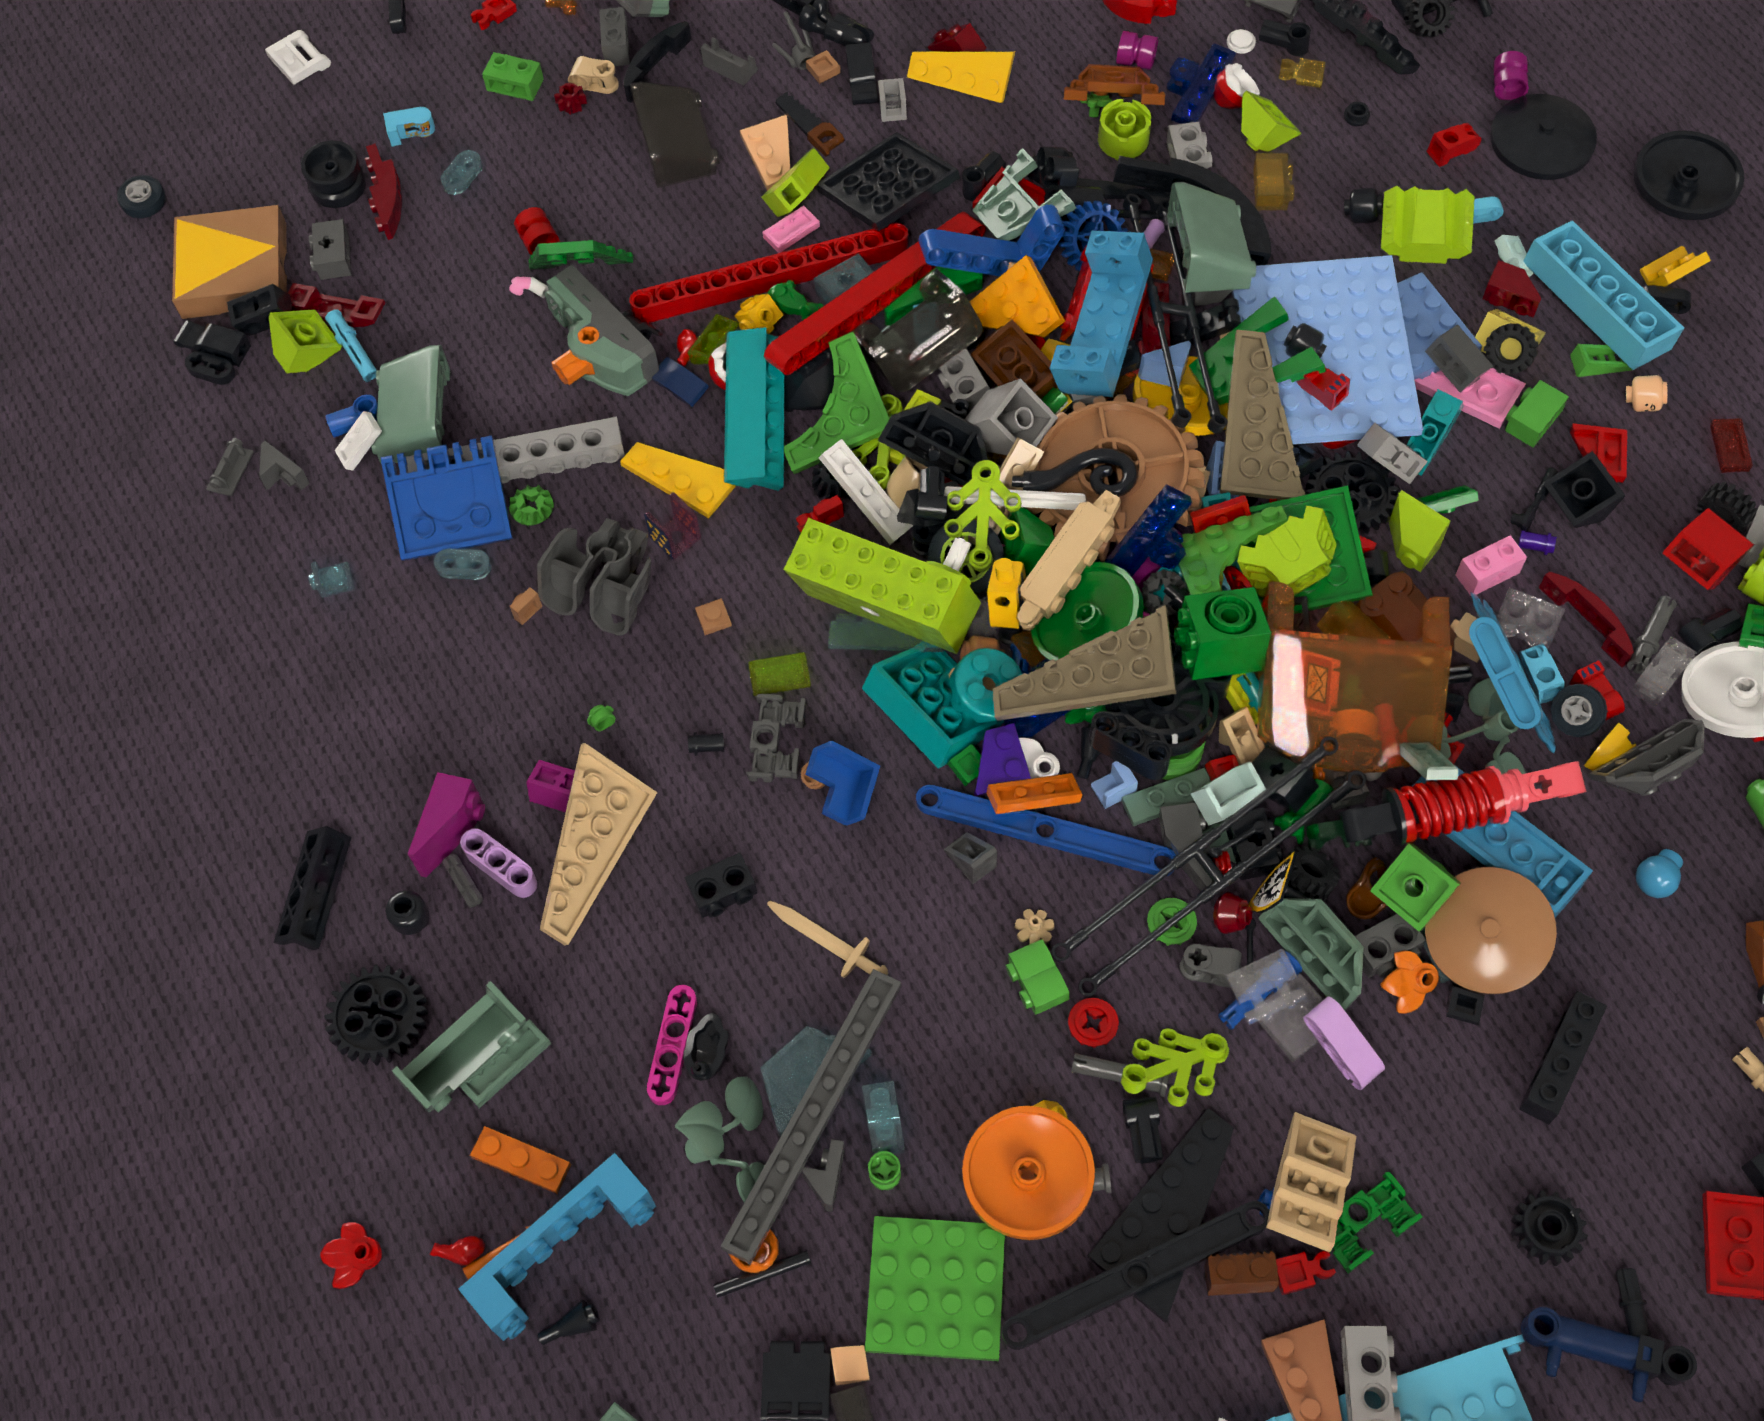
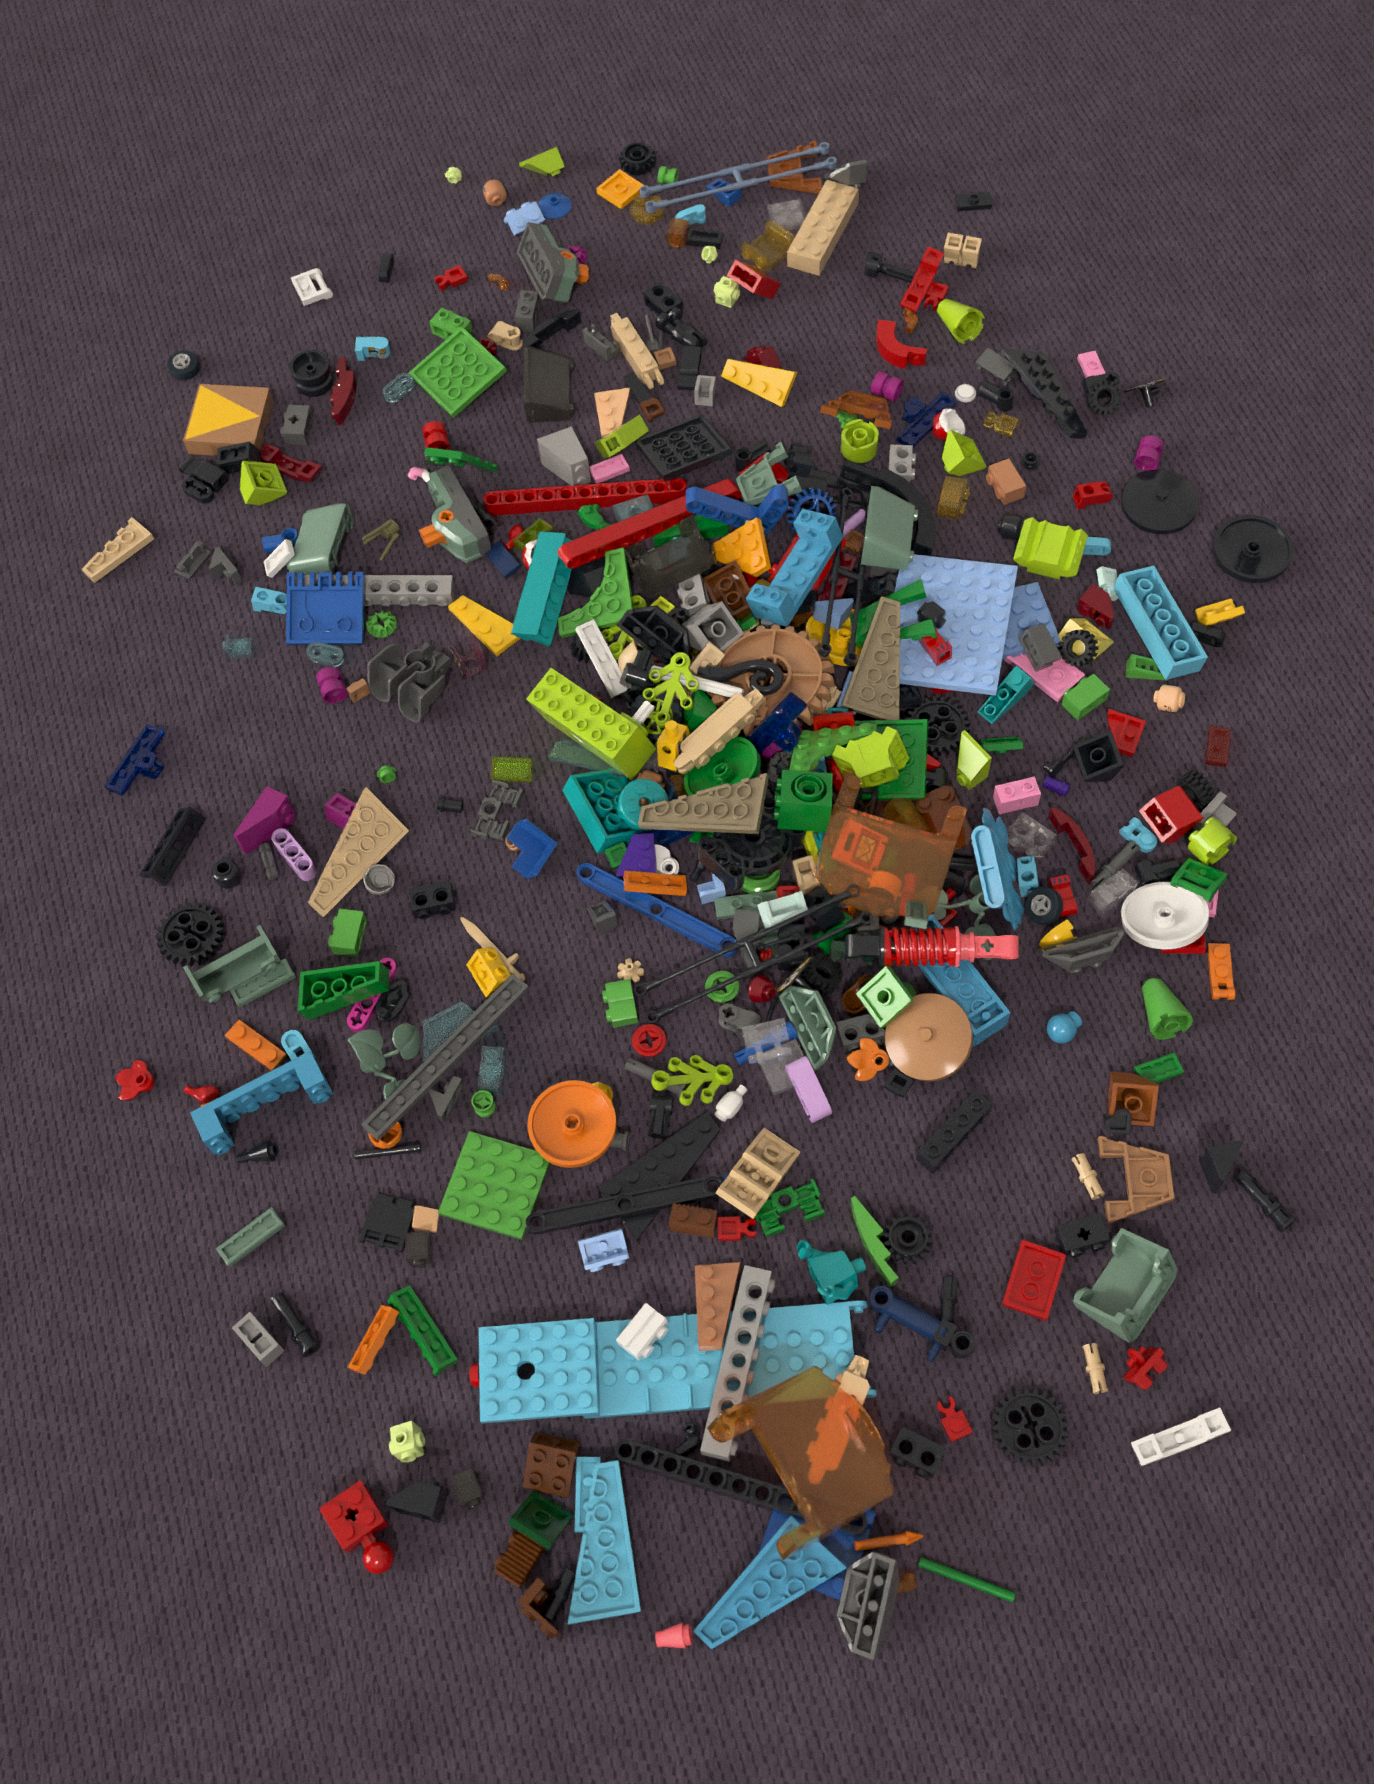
camera: 15 degrees right, 0 degrees up
(120, 469) = (117, 551): none -> tan wing
(226, 772) = (137, 760): none -> clear blue plate
(347, 338) = (291, 486): medium azure pin -> none
(361, 503) = (269, 600): none -> medium azure leg
(485, 605) = (331, 684): none -> magenta wheel
(503, 372) = (387, 530): none -> olive plant
(541, 135) = (457, 372): none -> bright green plate
(576, 1142) = (293, 1042): none -> medium azure plate
(611, 961) = (348, 932): none -> bright green brick
(624, 1045) = (338, 987): none -> green wedge
(633, 867) = (379, 879): none -> light grey hair
(713, 616) = (479, 722): medium nougat plate -> none
(728, 223) = (565, 457): none -> light grey slope
(758, 313) = (568, 523): yellow brick -> none
(781, 64) = (635, 351): none -> tan hinge
(825, 512) = (572, 668): red plate -> none
(833, 972) = (488, 970): none -> yellow bracket
(1125, 1349) = (603, 1250): none -> light blue bracket
(1237, 1089) = (730, 1104): none -> white plant
(1337, 147) = (1006, 481): none -> nougat brick
(1392, 453) = (970, 703): light grey brick -> none
(1462, 1304) = (831, 1271): none -> teal torso
(1493, 1233) = (870, 1234): none -> bright green slope
(1677, 588) = (1145, 838): none -> medium azure plate

